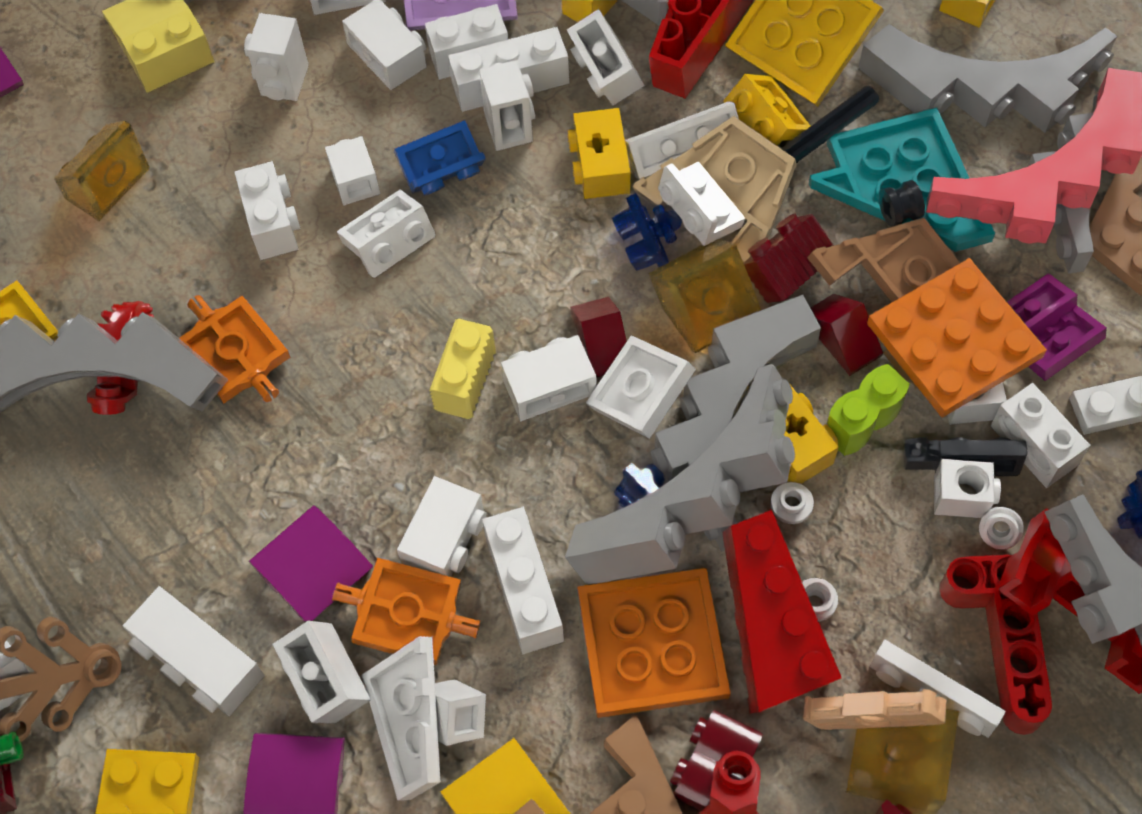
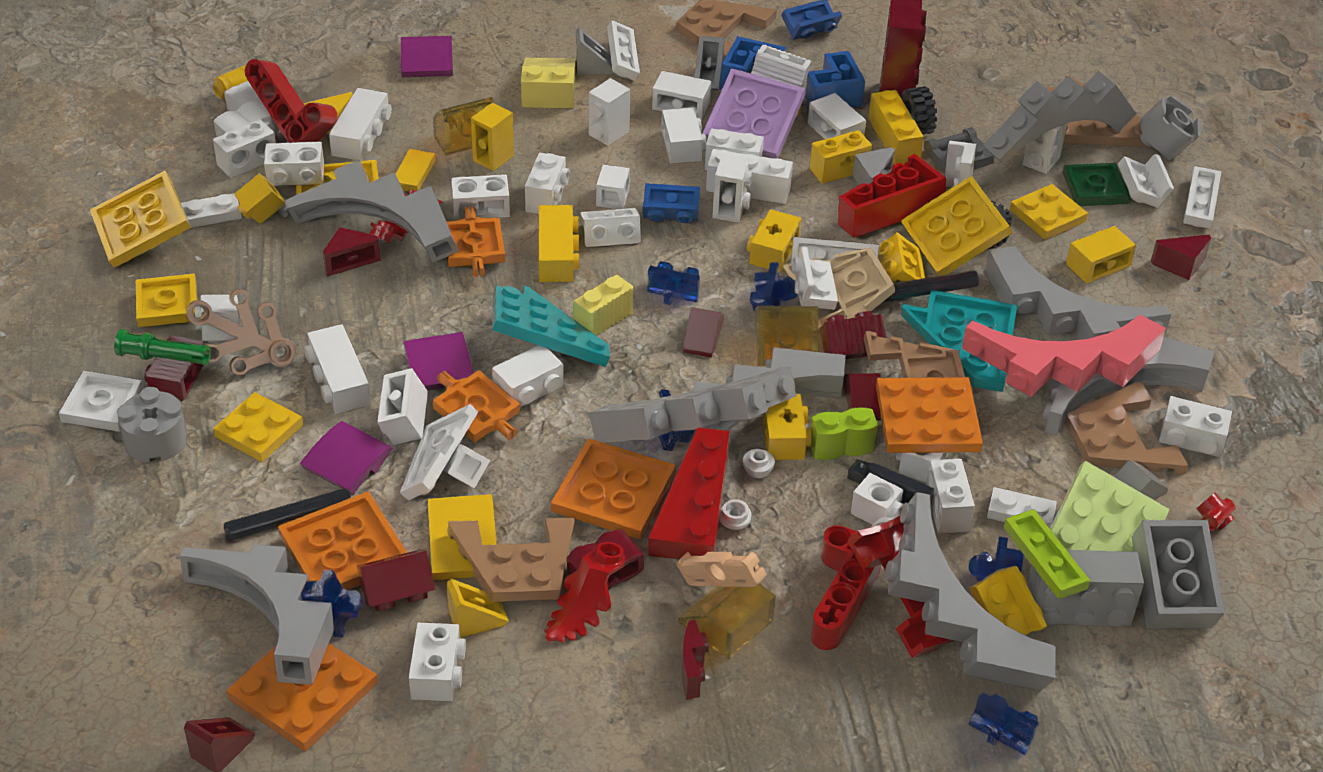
camera: 25 degrees right, 20 degrees down
(76, 271) = (415, 169): none -> yellow tile
(81, 450) = (349, 251): none -> dark red slope
(154, 171) = (492, 136): none -> yellow brick
(197, 277) = (485, 193): none -> white brick
(341, 297) = (558, 243): none -> yellow brick
(409, 444) = (538, 321): none -> teal wing
(523, 580) = (557, 421): white brick -> none
(525, 287) = (672, 283): none -> clear blue hips
(548, 377) = (652, 334): white brick -> none
(605, 57) = (813, 193): white brick -> none
(640, 386) = (705, 357): white plate -> none
(901, 203) = (948, 335): black wheel -> none
(902, 669) = (788, 608): white plate -> none
(1058, 324) = (1007, 451): magenta slope -> none

